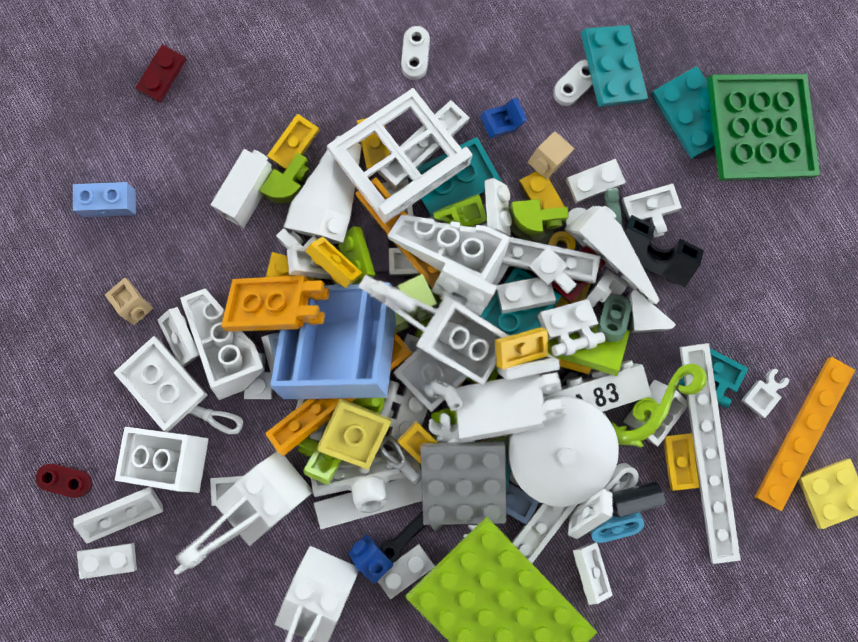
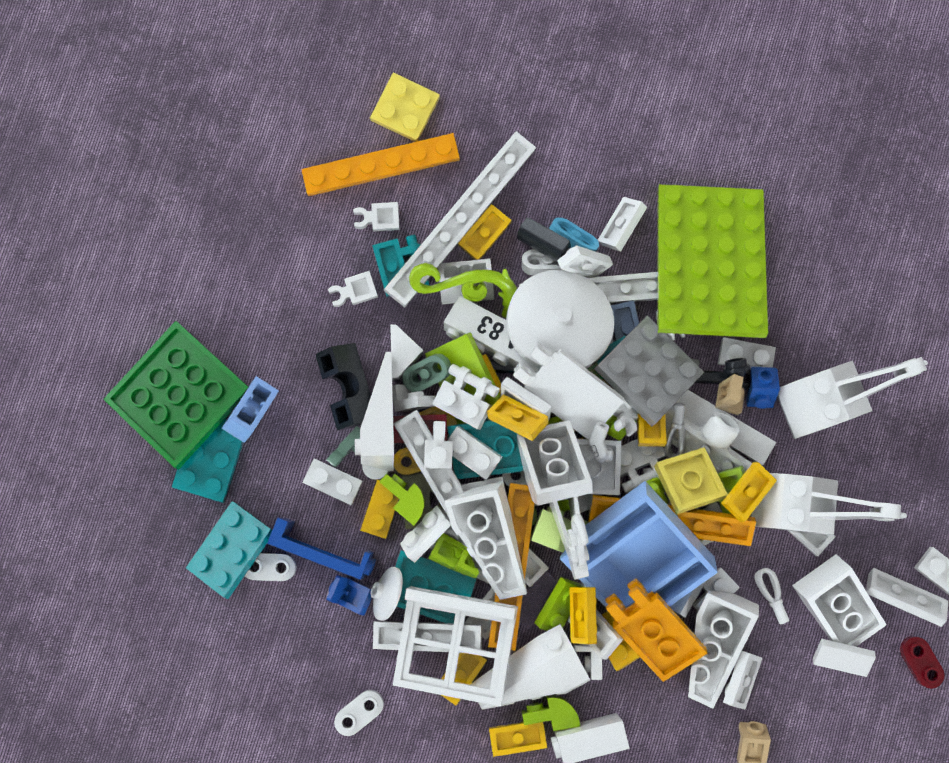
camera: 130 degrees left, 0 degrees up
(121, 426) = (844, 657): none -> white tile
(160, 384) = (788, 659): white plate -> none
(305, 468) = (749, 492): none -> yellow plate
(386, 528) = (731, 395): none -> tan bracket
(404, 552) = (736, 366): none -> black plate
(464, 288) = (514, 499): white plate -> none
(481, 142) = (387, 593): none -> white dish
(550, 155) = (347, 532): tan brick -> none
(587, 105) = (281, 539): none -> blue panel
(652, 206) = (314, 422): white plate -> none
(705, 166) = (250, 409): none -> light blue brick
(722, 327) = (357, 288): none -> white plate

